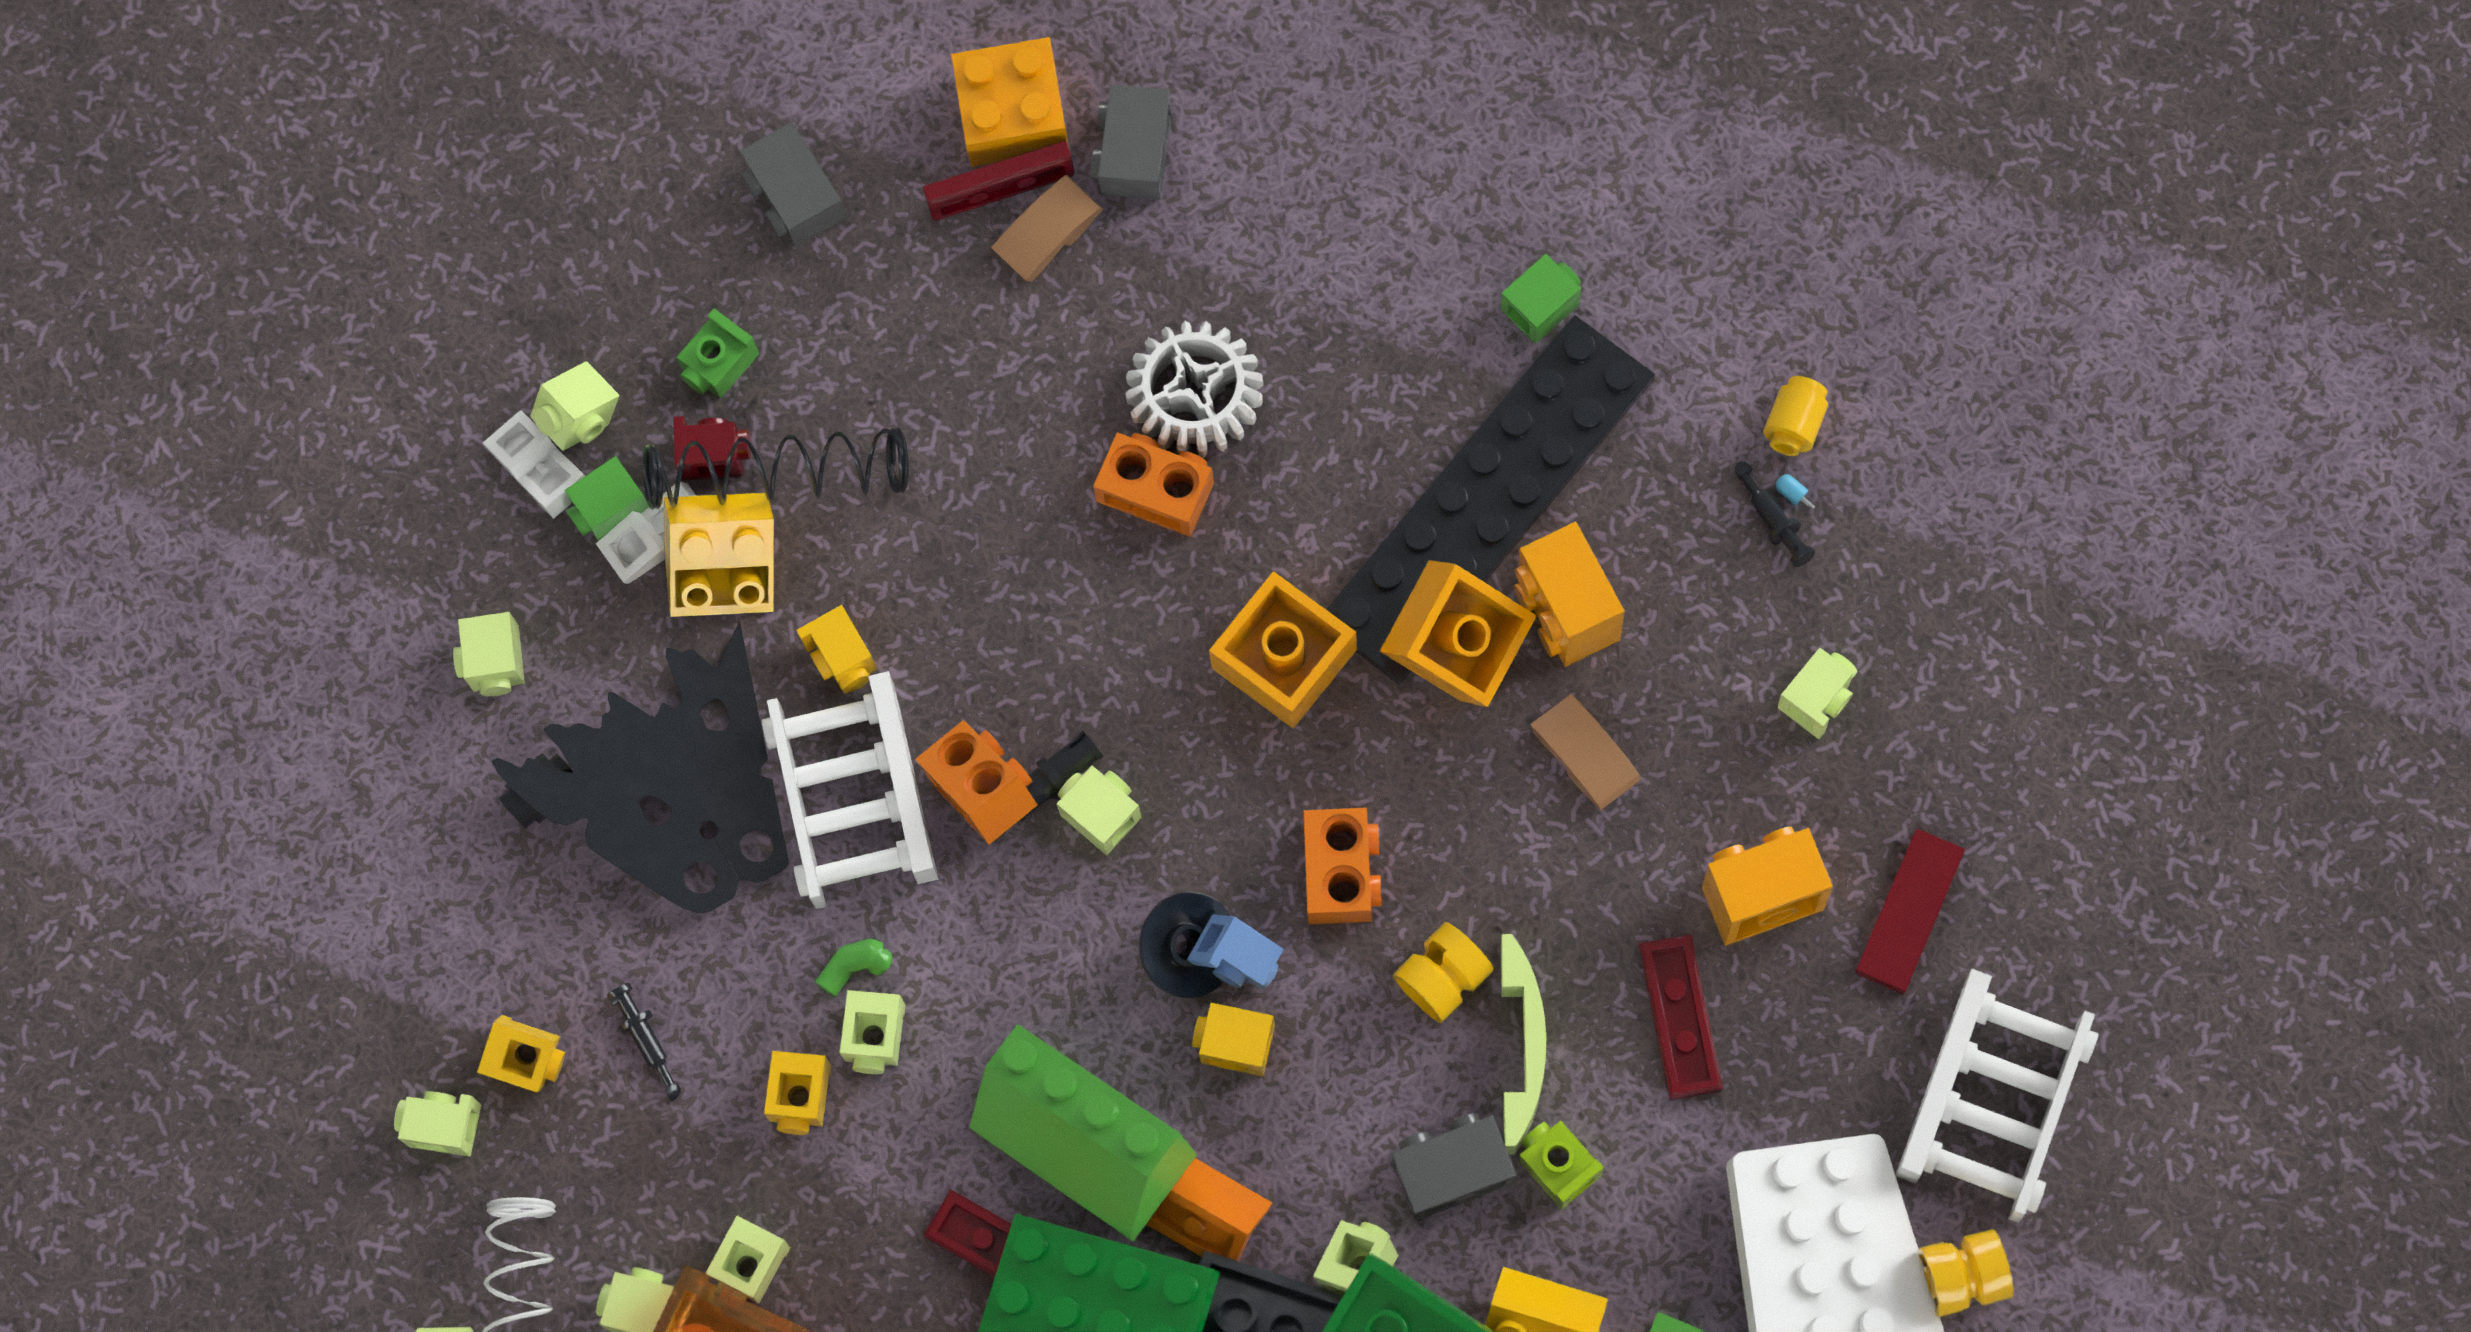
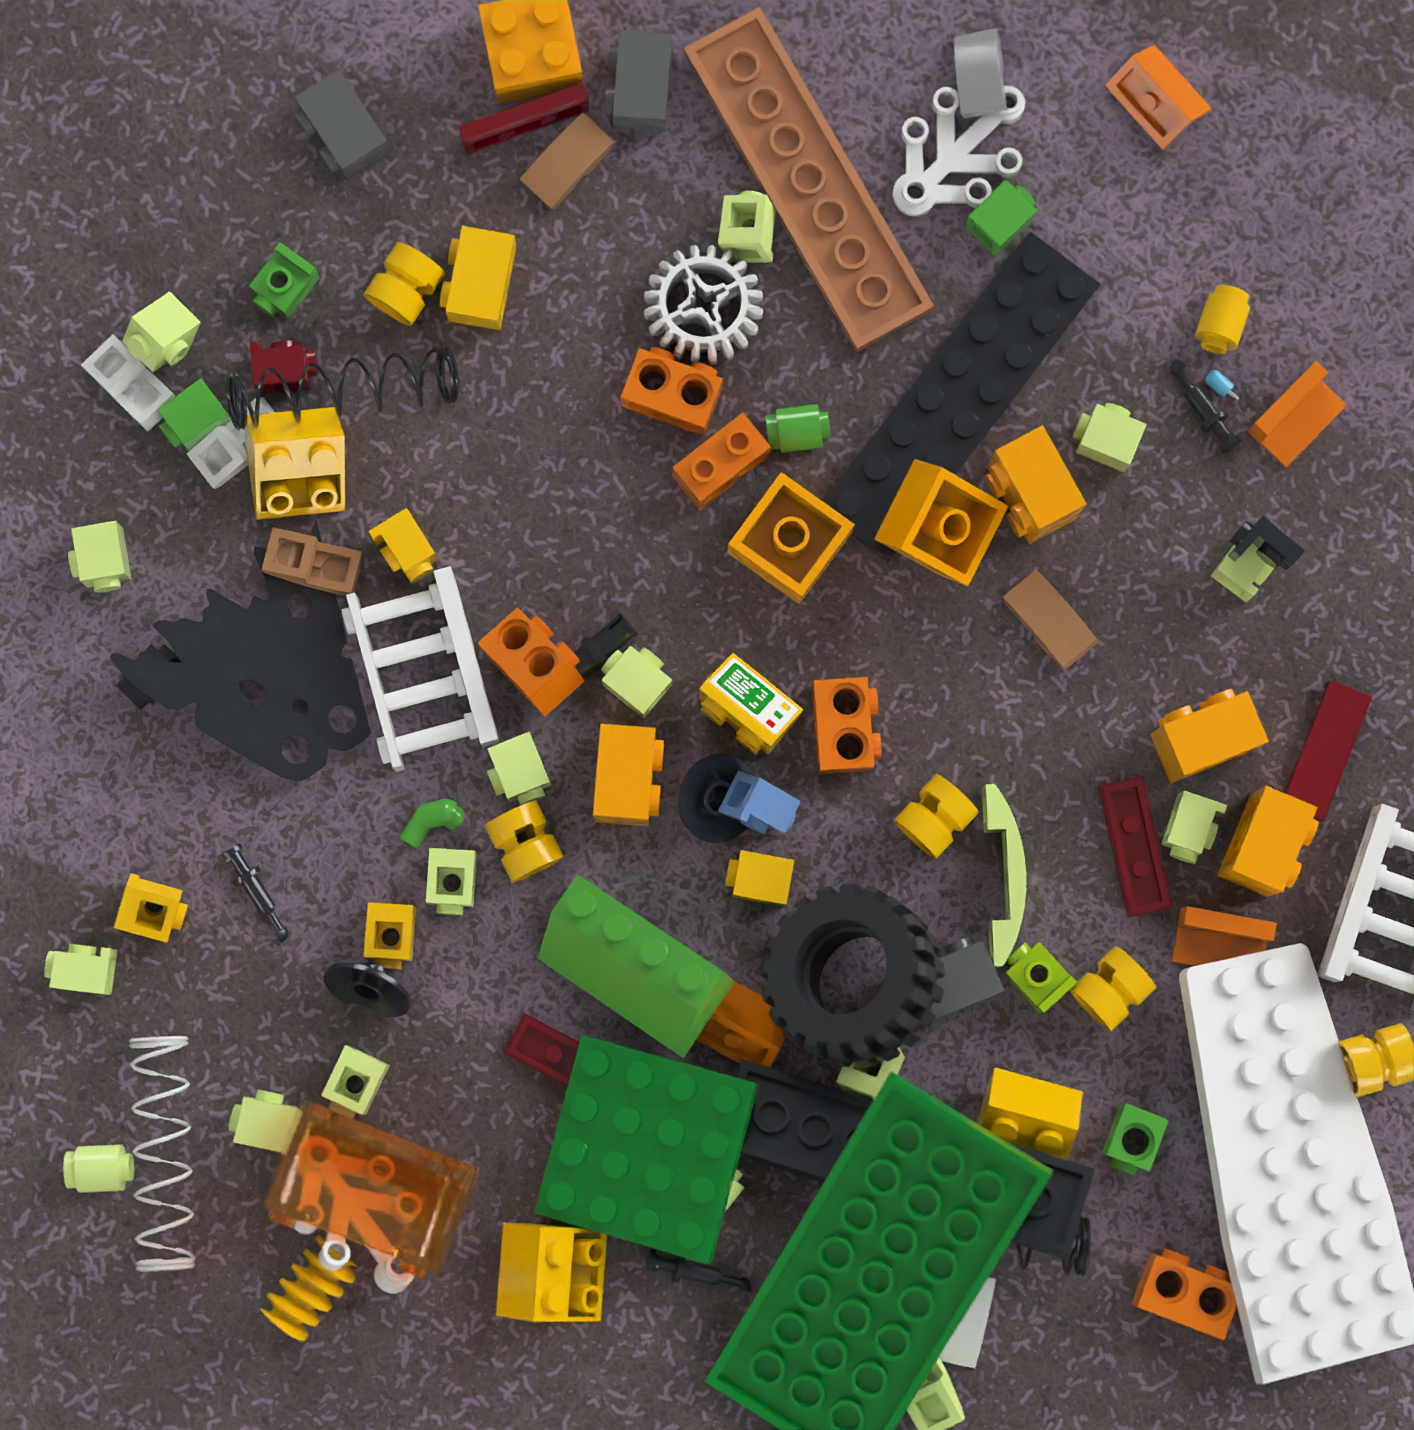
camera: 15 degrees left, 10 degrees up
(729, 668) = (312, 563): none -> medium nougat slope
(767, 1151) = (367, 986): none -> black dish
(853, 358) = (404, 283): none -> yellow wheel
(939, 354) = (479, 277): none -> yellow brick
(956, 907) = (518, 770): none -> yellowish green brick
(965, 1005) = (530, 856): none -> yellow wheel
(1079, 913) = (626, 775): none -> light orange brick
(1207, 562) = (721, 461): none -> orange brick
(1227, 837) = (748, 704): none -> slope
(1248, 303) = (747, 242): none -> yellowish green brick
(1298, 529) = (797, 428): none -> bright green brick
(1321, 255) = (808, 179): none -> nougat plate
(1382, 1183) = (809, 941): none -> black tyre
(1492, 230) = (953, 156): none -> white plant
(1521, 139) = (979, 73): none -> light grey slope
(1647, 1179) = (1113, 988): none -> yellow wheel
(1659, 544) = (1109, 436): none -> yellowish green brick
(1725, 167) = (1157, 96): none -> orange panel
(1746, 992) = (1191, 826): none -> yellowish green brick
(1776, 1119) = (1217, 936): none -> orange panel
(1837, 1000) = (1269, 842): none -> light orange brick
(1843, 663) = (1273, 544): none -> black bracket
(1881, 526) = (1298, 416): none -> orange panel

